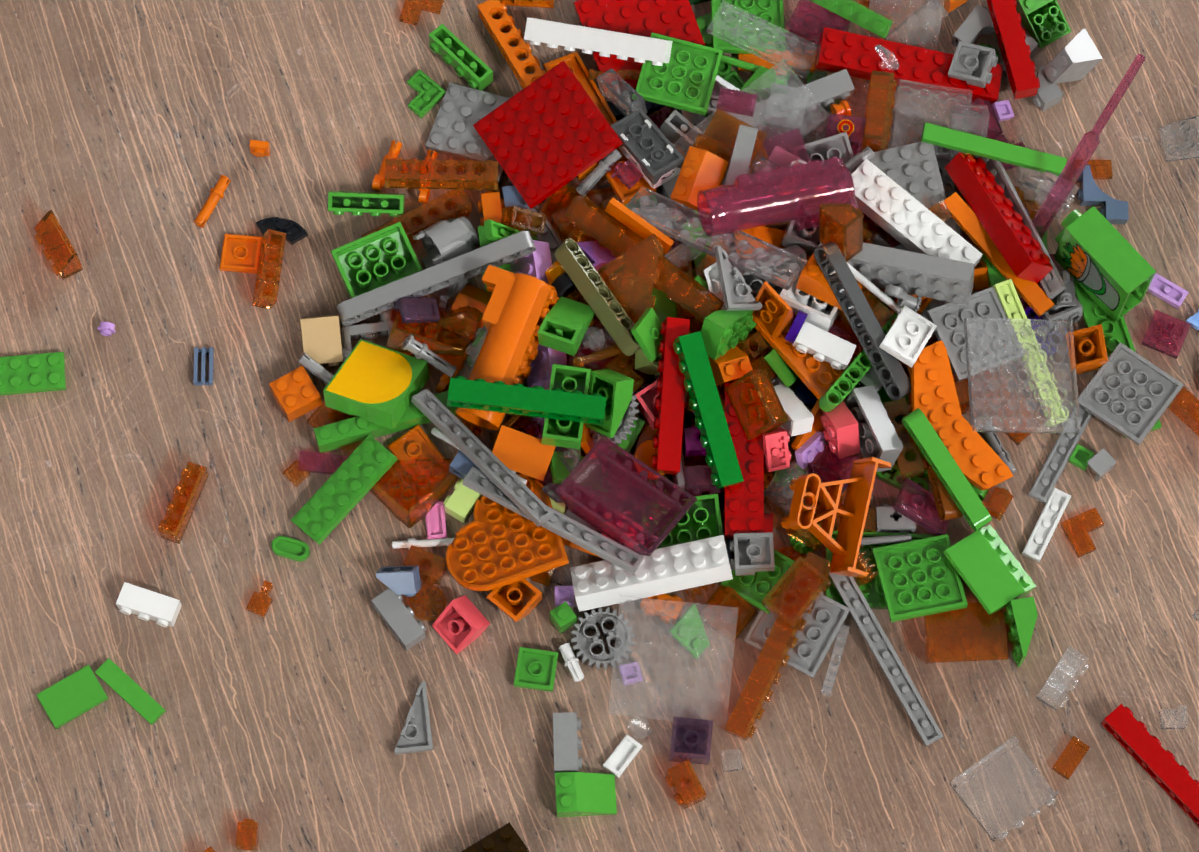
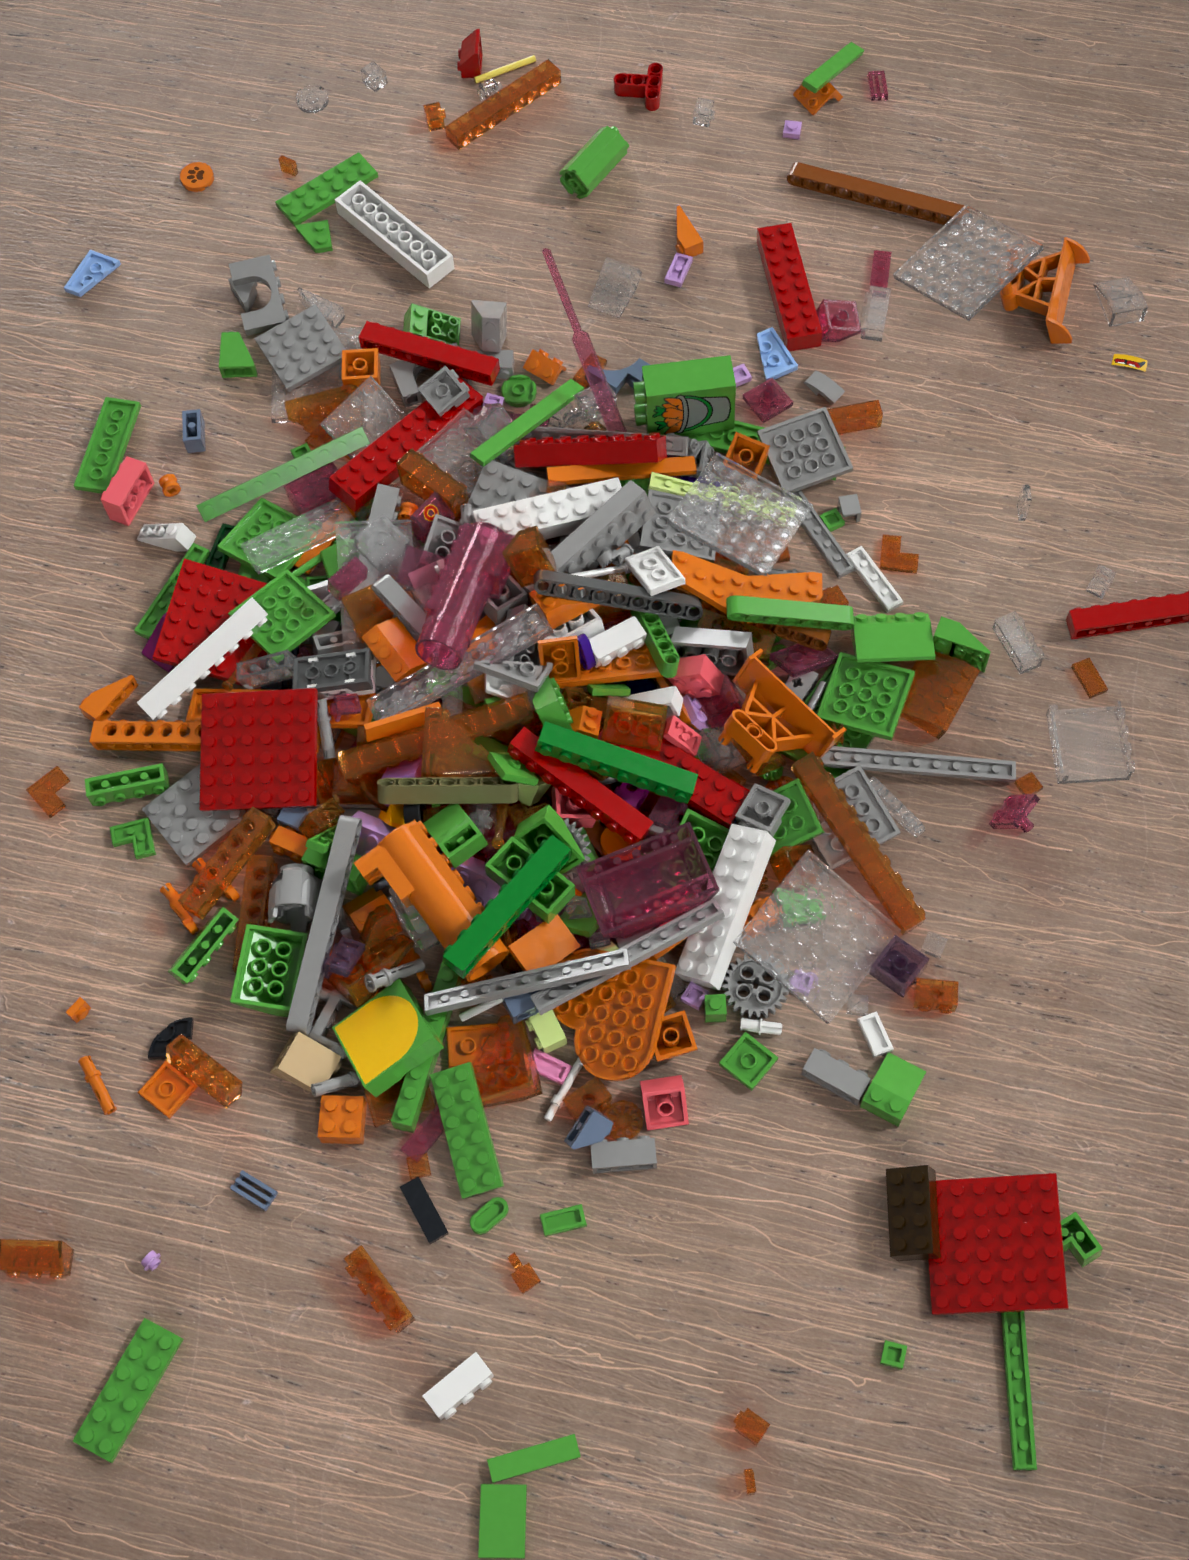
camera: 50 degrees left, 5 degrees down
(265, 498) = (424, 1210): none -> black tile
(321, 605) = (563, 1220): none -> bright green tile
(417, 730) = (740, 1201): light grey wing -> none
(796, 593) = (827, 793): clear orange brick -> none
(888, 58) = (395, 445): clear piece -> none
(892, 760) = (1015, 813): none -> clear pink plate
(931, 760) = (1028, 784): none -> clear orange tile
(1031, 124) = (519, 391): none -> bright green tile
(1068, 128) = (544, 367): none -> orange bracket

